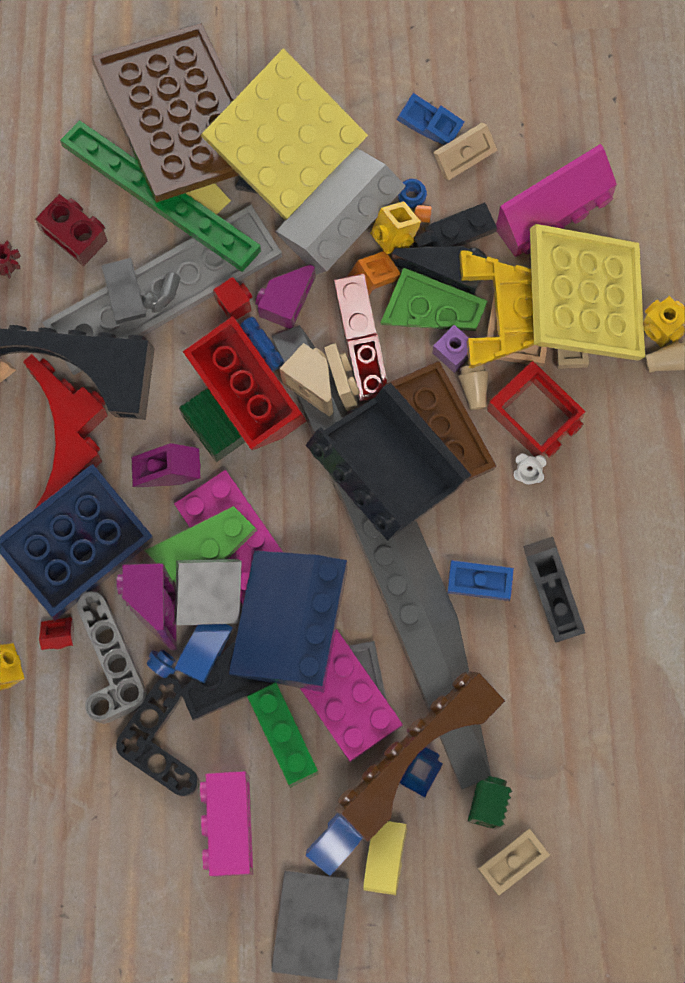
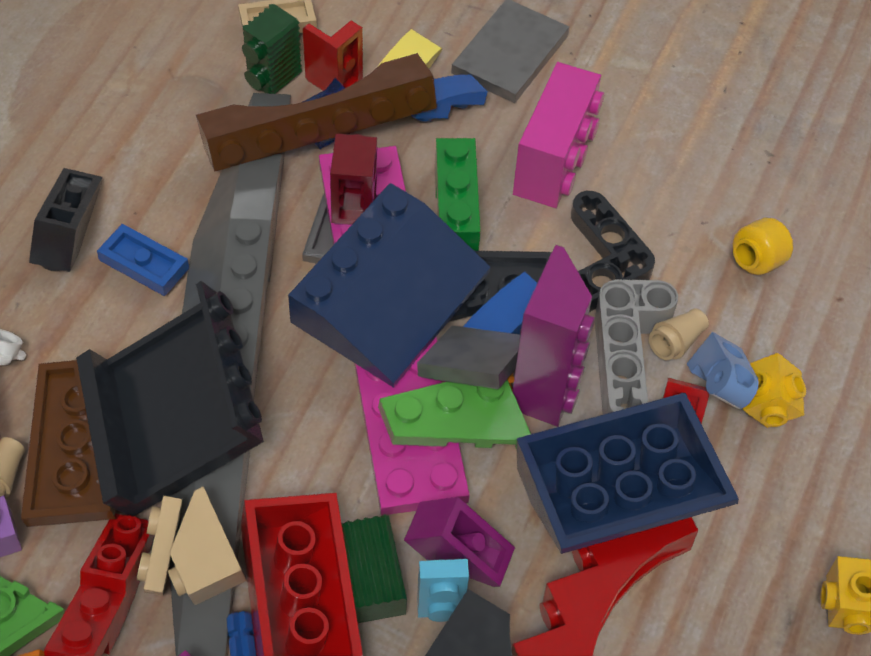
camera: 160 degrees left, 20 degrees down
(32, 660) = (725, 370): none -> medium blue leg
(40, 800) = (762, 246): none -> yellow head
(77, 692) = (675, 335): none -> tan cone
(159, 420) = (441, 587): none -> medium azure plate
(351, 681) = (352, 176): none -> dark red brick
(430, 816) = (333, 56): none -> red panel

